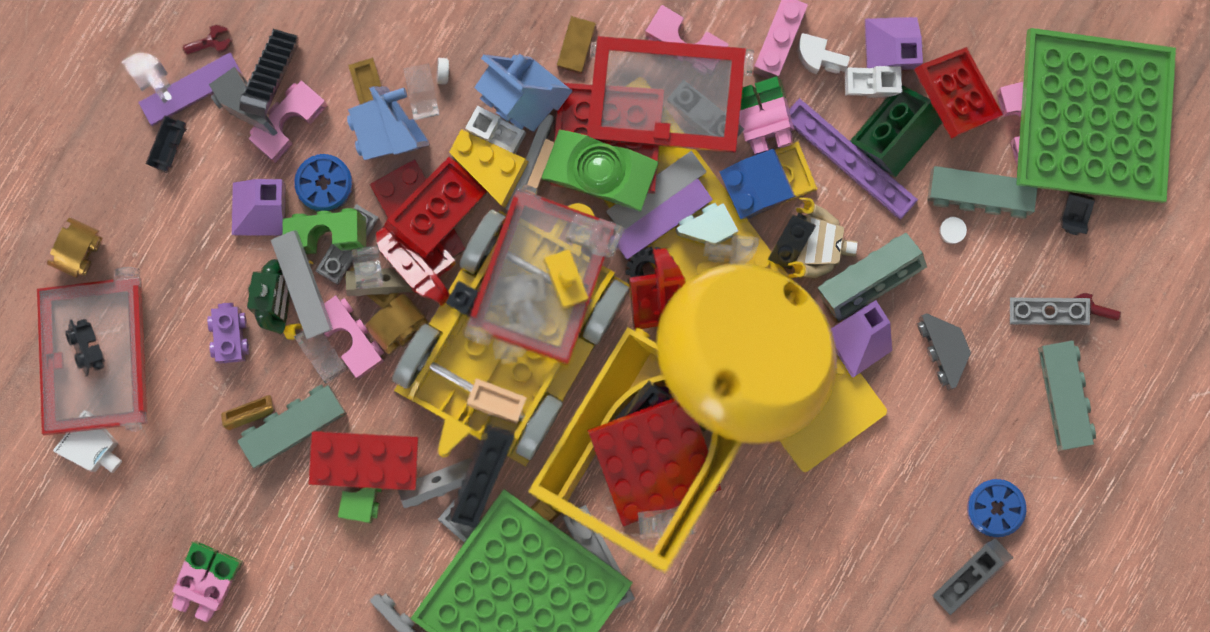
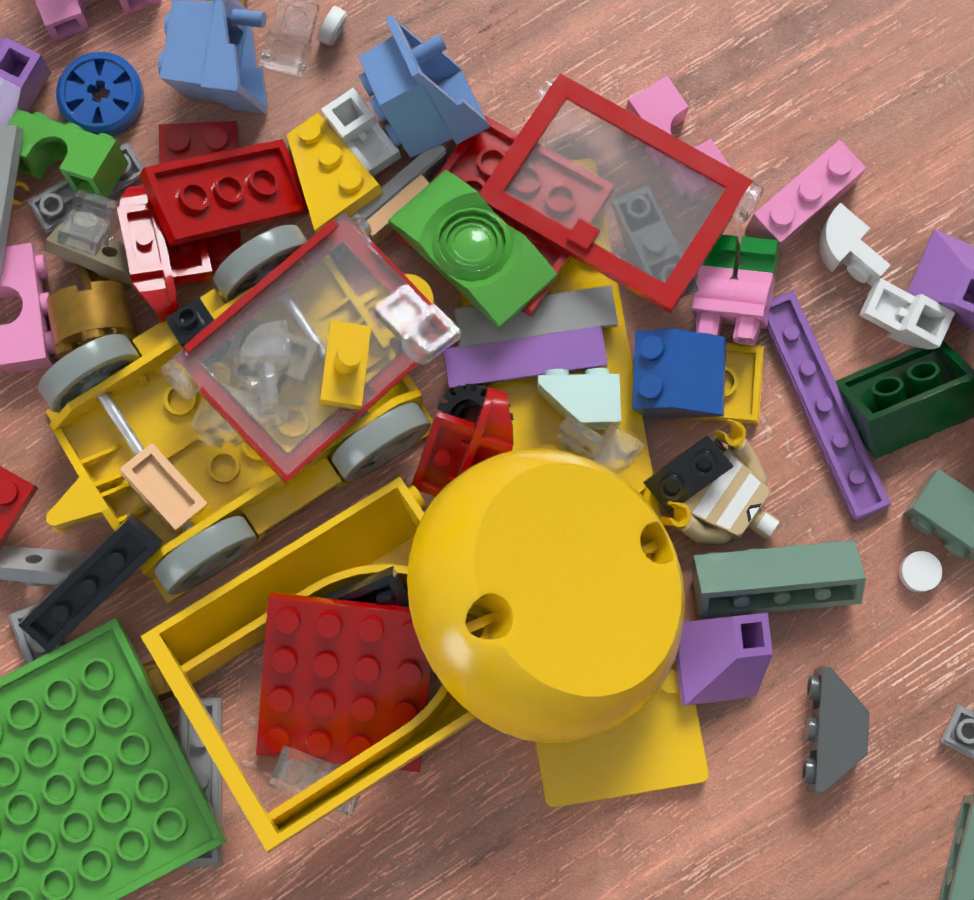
camera: 25 degrees right, 5 degrees down
(576, 44) = (521, 83): pearl gold tile -> none

